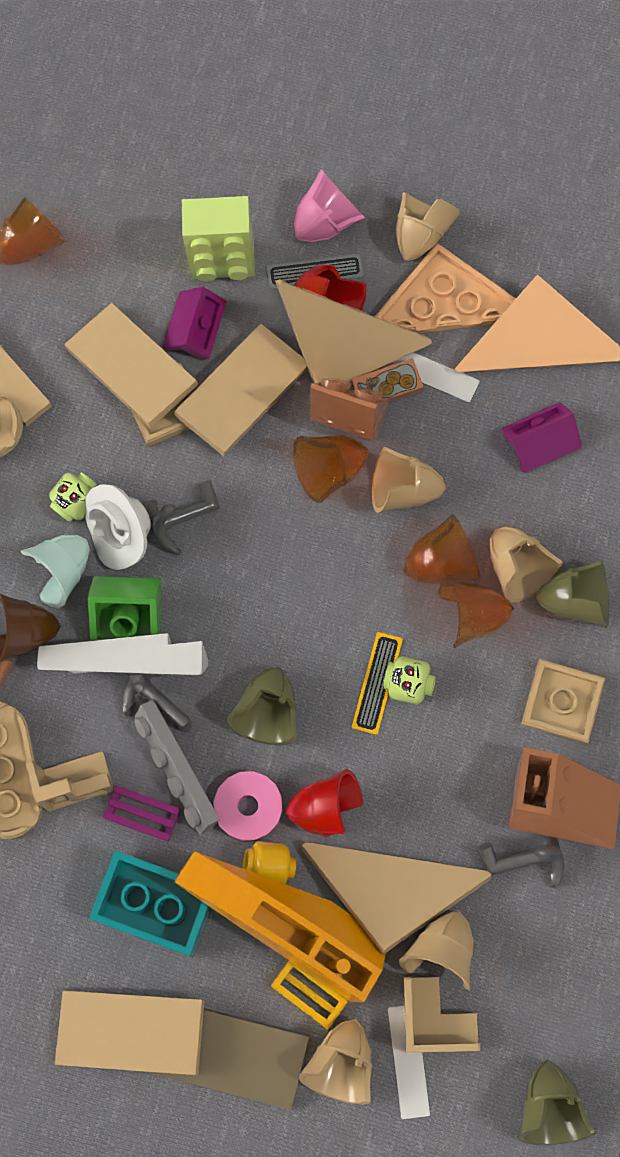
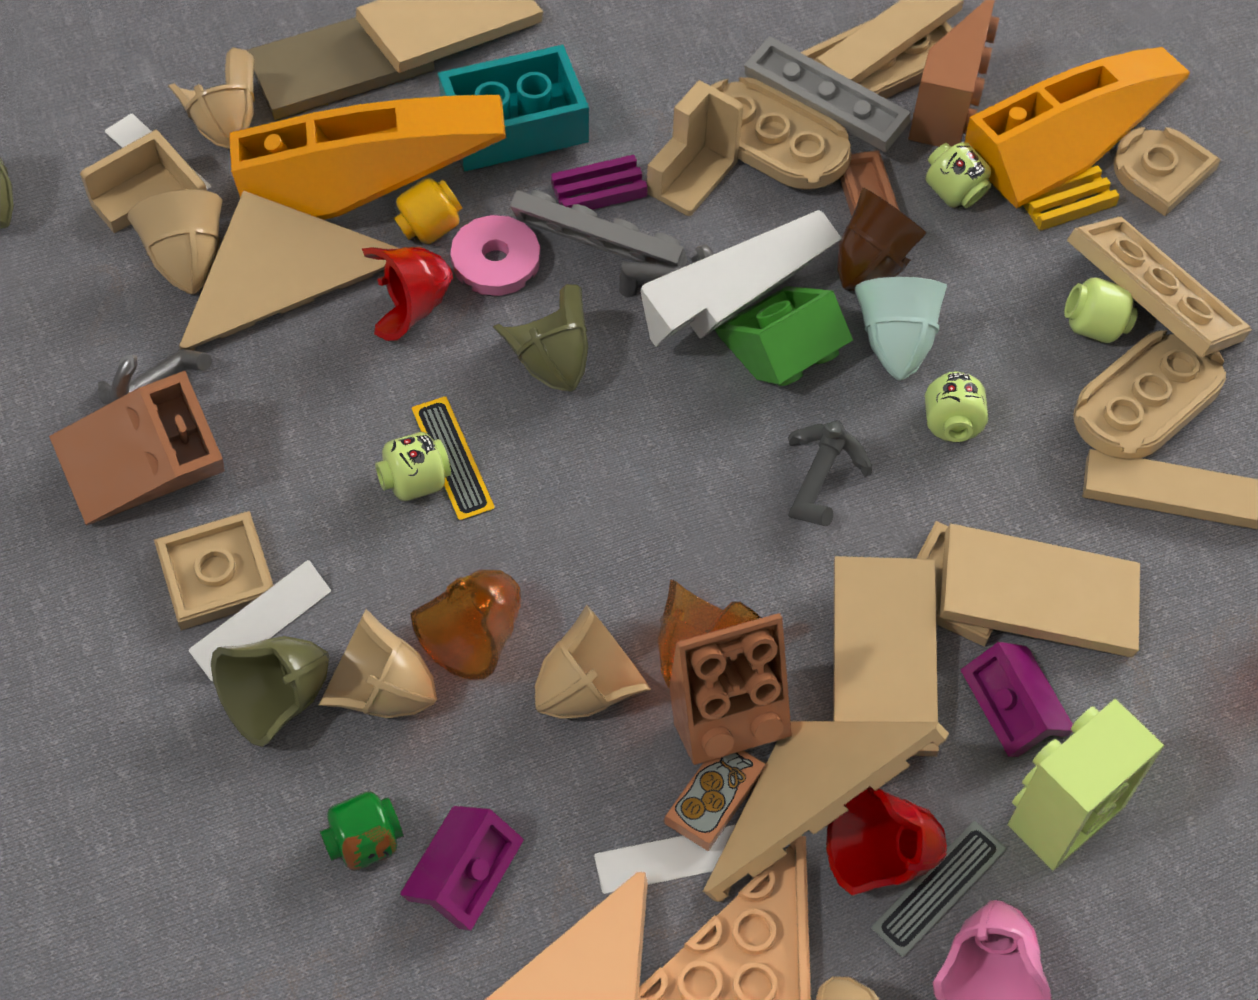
camera: 135 degrees right, 15 degrees down
(117, 526) = (875, 397): white hat -> none
(479, 609) = (390, 577): clear orange helmet -> none
(557, 649) = (265, 614): none -> white sticker
(582, 485) = (362, 830): none -> green head

